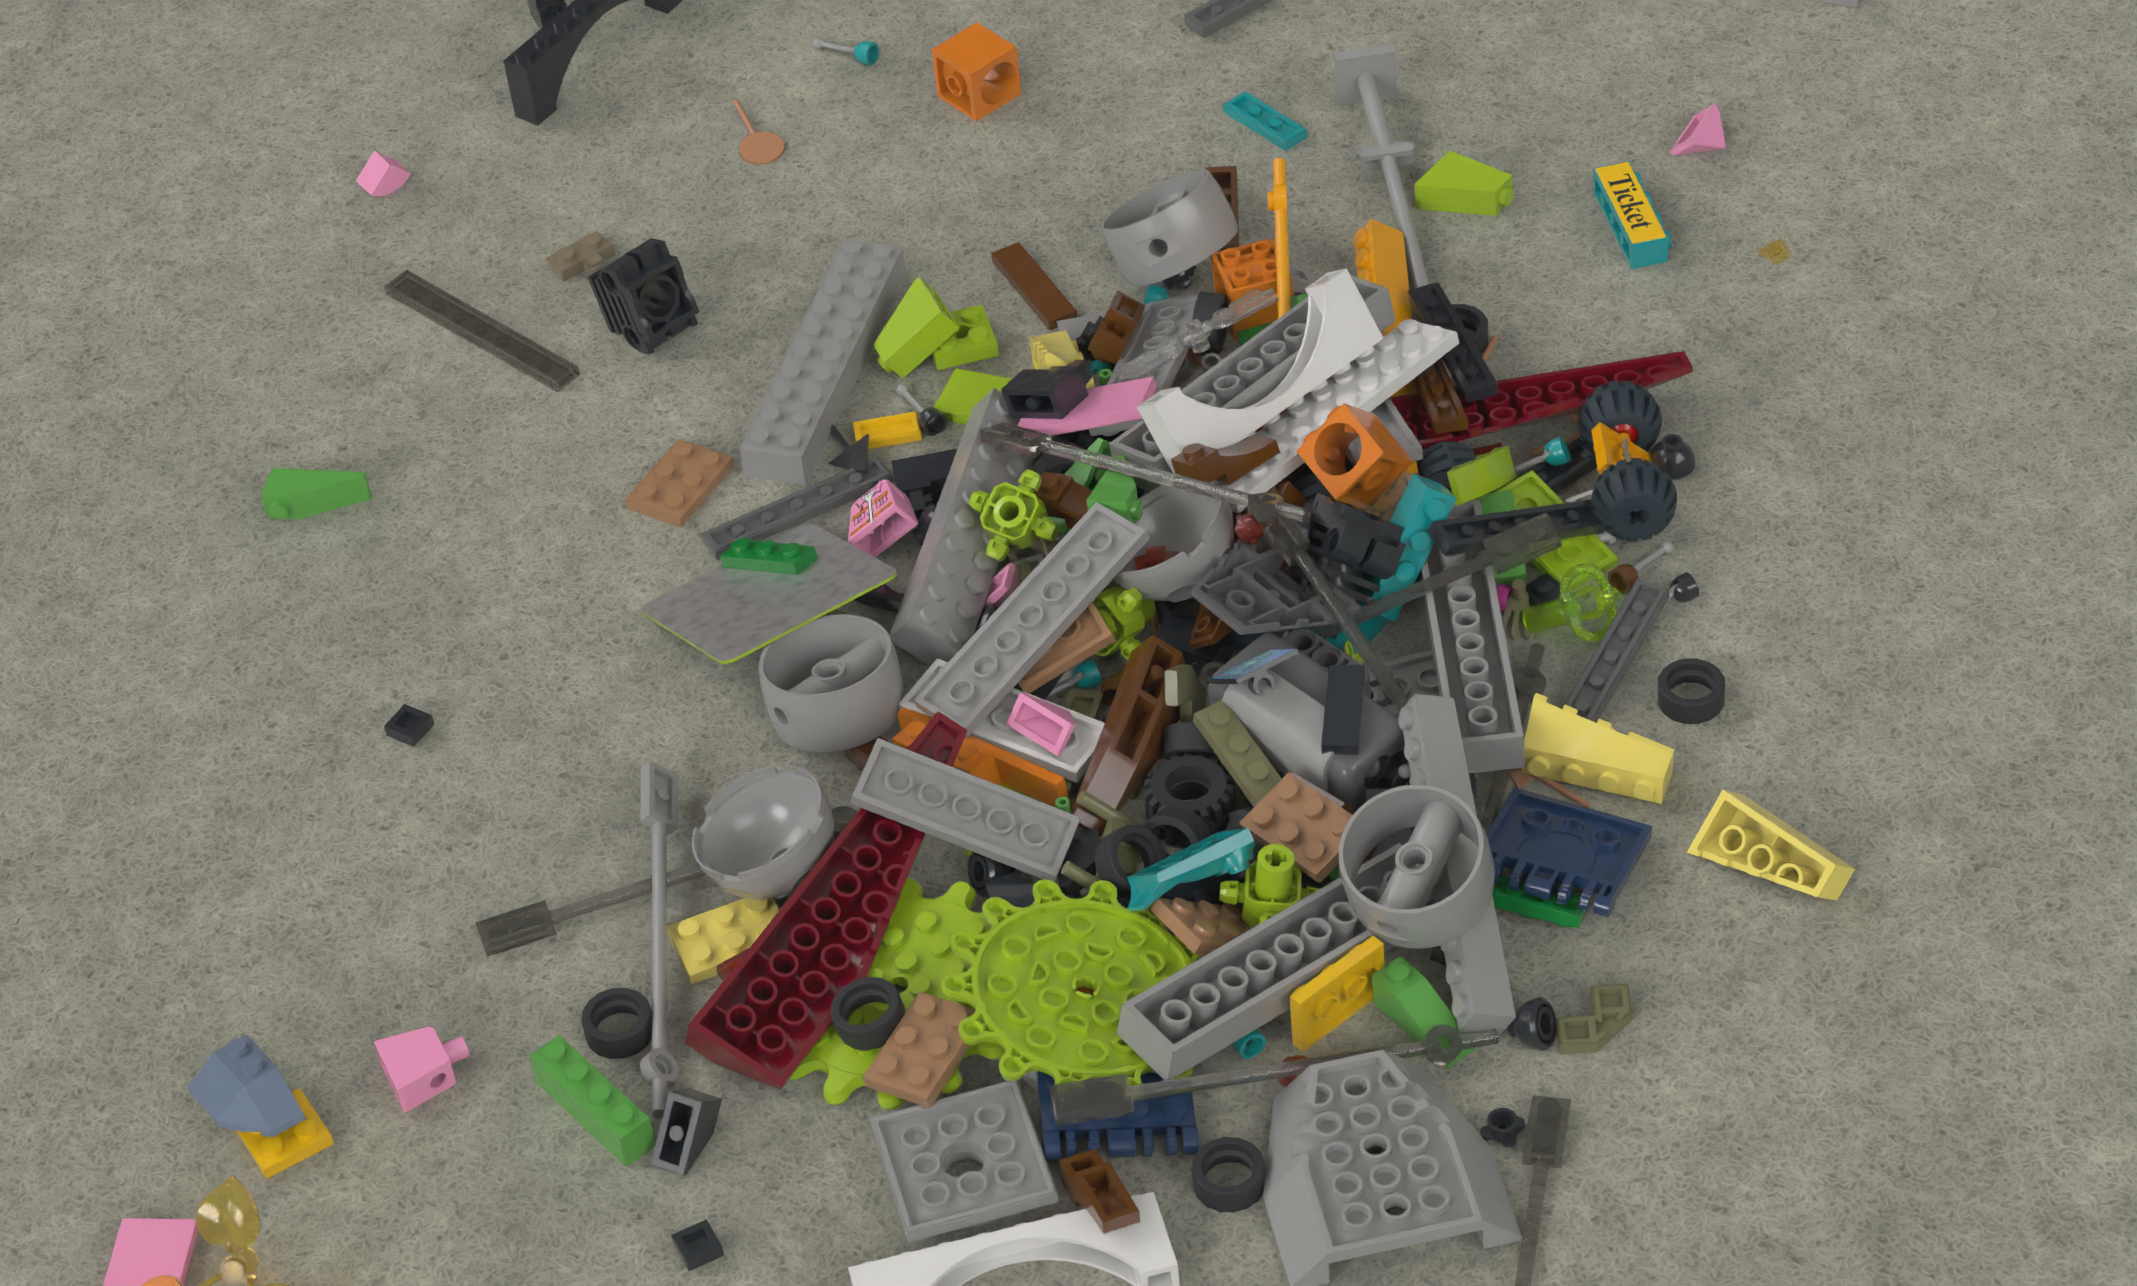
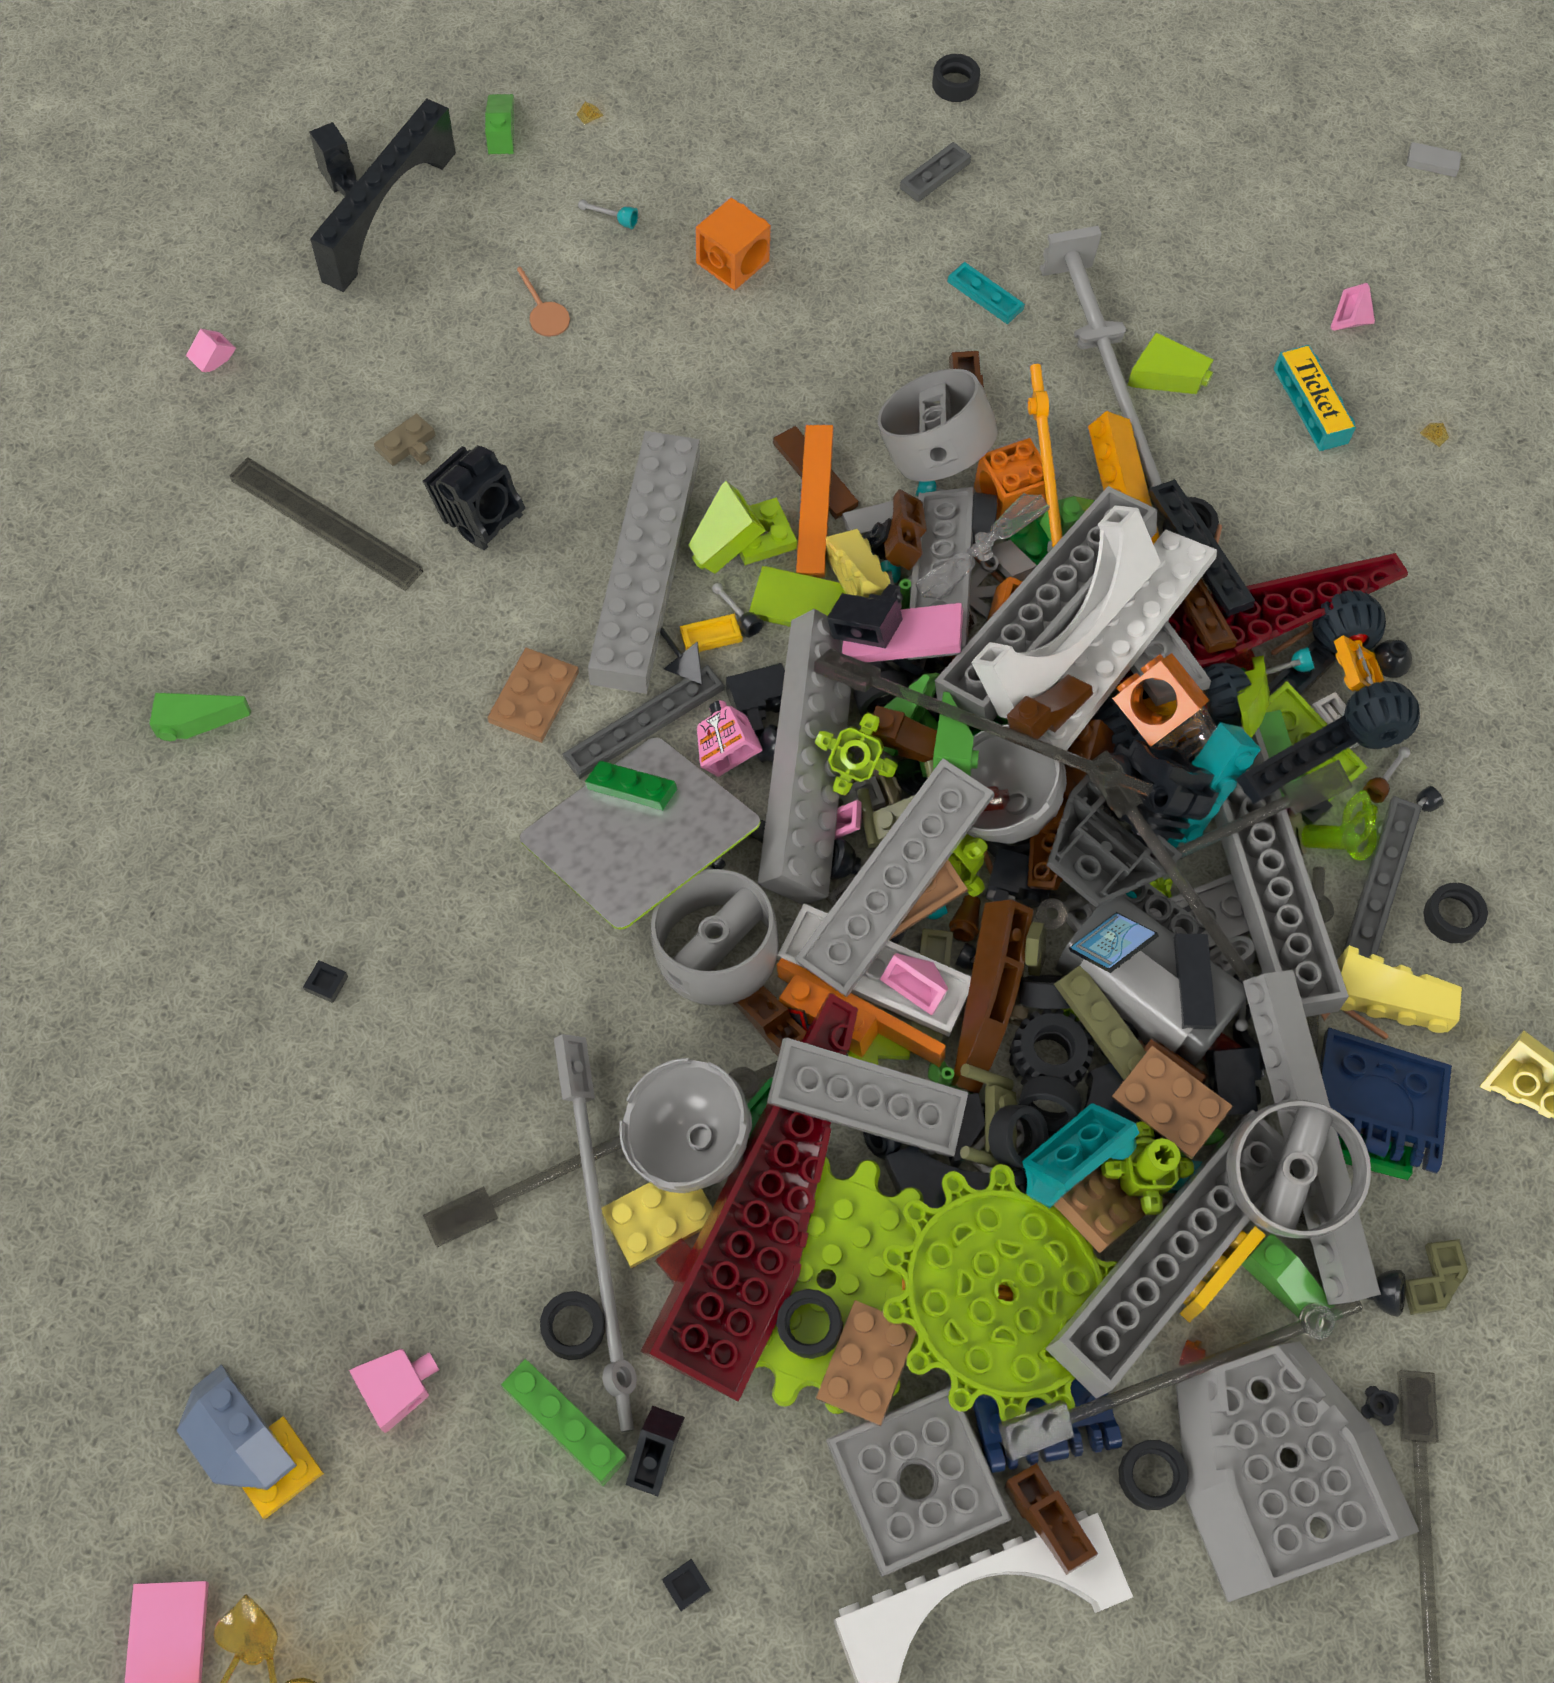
camera: 15 degrees left, 20 degrees up
(1026, 304) = (815, 500): none -> orange tile
(1248, 529) = (1082, 785): clear red plate -> none

